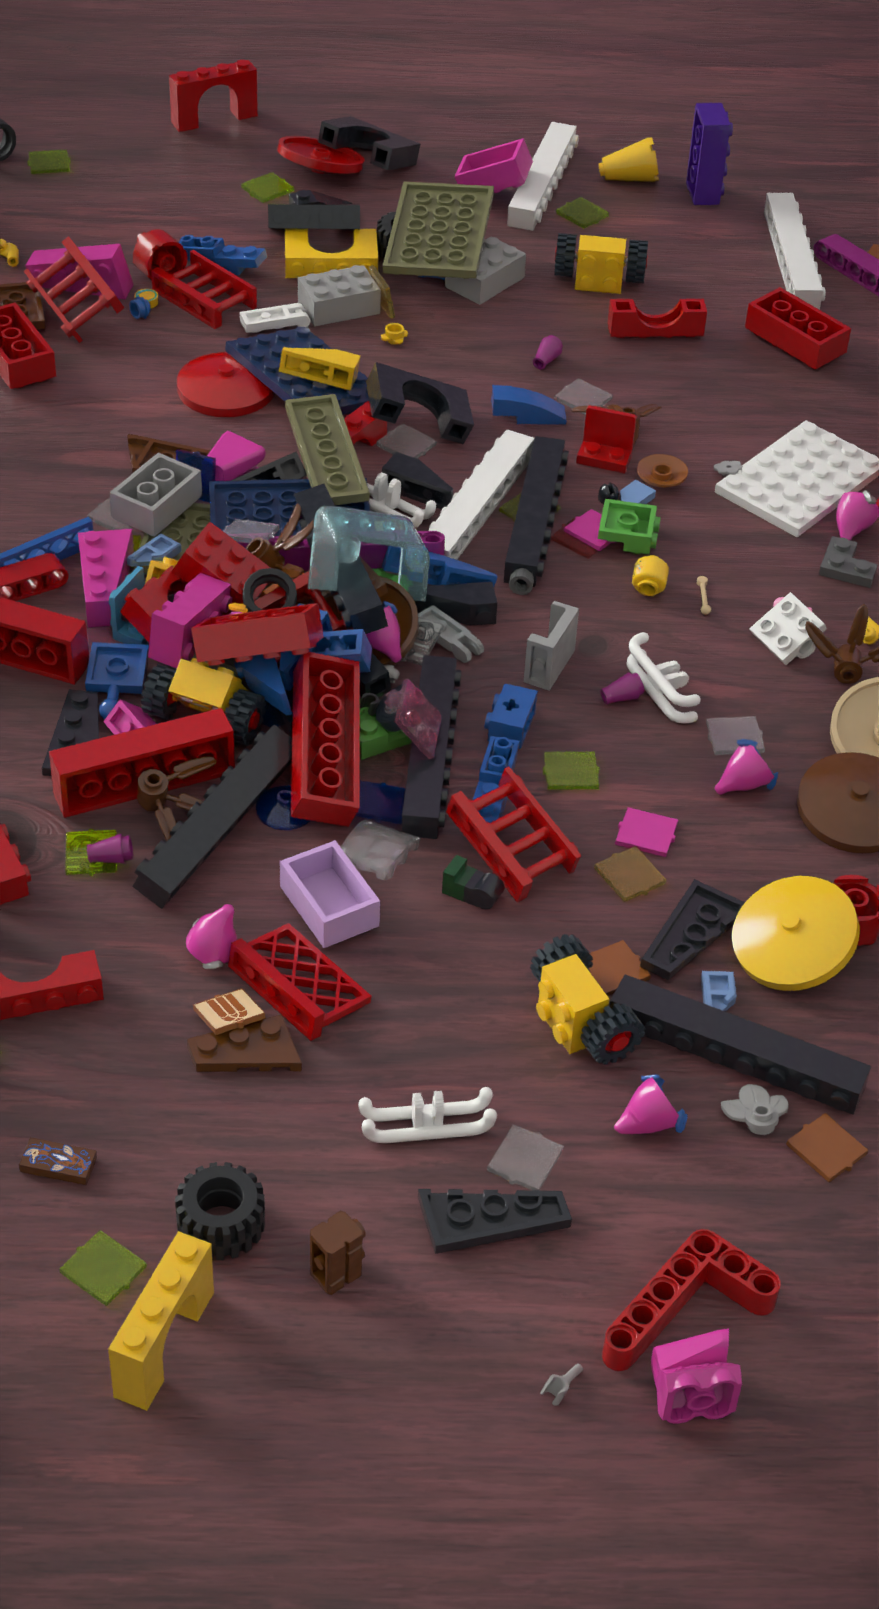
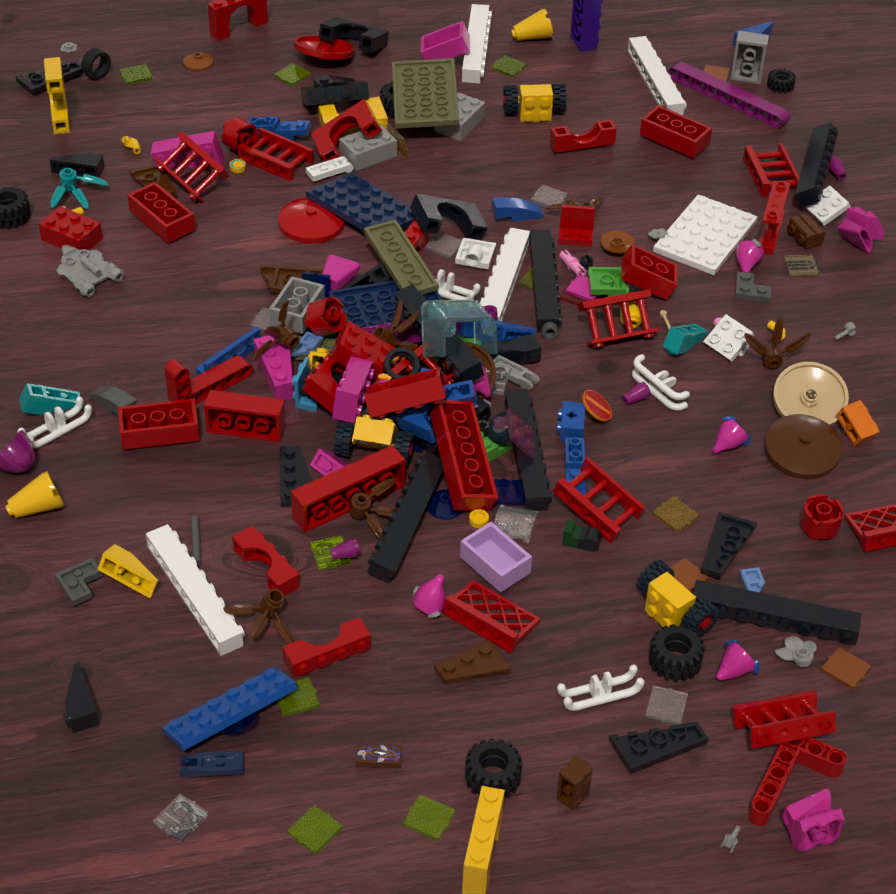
camera: 10 degrees left, 0 degrees up
(116, 528) = (281, 334): none -> reddish brown plant
(116, 670) = (307, 429): blue plate -> none
(139, 307) = (236, 173): blue plate -> none
(141, 154) = (198, 61): none -> dark orange dish
(187, 512) = (325, 316): none -> red brick
(229, 1011) = (455, 642): piece -> none
(247, 530) = (369, 322): clear piece -> none
(321, 365) = (378, 199): yellow slope -> none
(327, 832) = (478, 518): none -> yellow tile
(333, 248) = (356, 116): none -> red arch
(394, 333) = (412, 169): yellow plate -> none
(418, 480) = (464, 271): black slope -> none
(450, 458) = (475, 253): none -> white plate
(548, 350) = (518, 167): magenta cone -> none
(549, 655) = (585, 372): light grey panel -> none
(556, 697) = (596, 405): none -> red piece
(556, 1100) = (676, 640): none -> black tyre
(571, 770) = (618, 452): clear neon green piece -> none
(586, 492) = (572, 263): none -> bright pink pin
(637, 493) = (604, 259): medium blue tile -> none
(638, 553) = (623, 301): none -> red fence
(646, 831) = (678, 485): dark pink piece -> none
(693, 517) = (649, 272): none -> red brick
(697, 1209) = (782, 708): none -> red fence
(720, 619) = (683, 338): none -> teal slope
(726, 732) = (712, 413): clear piece -> none
(795, 933) = (792, 536): yellow dish -> none

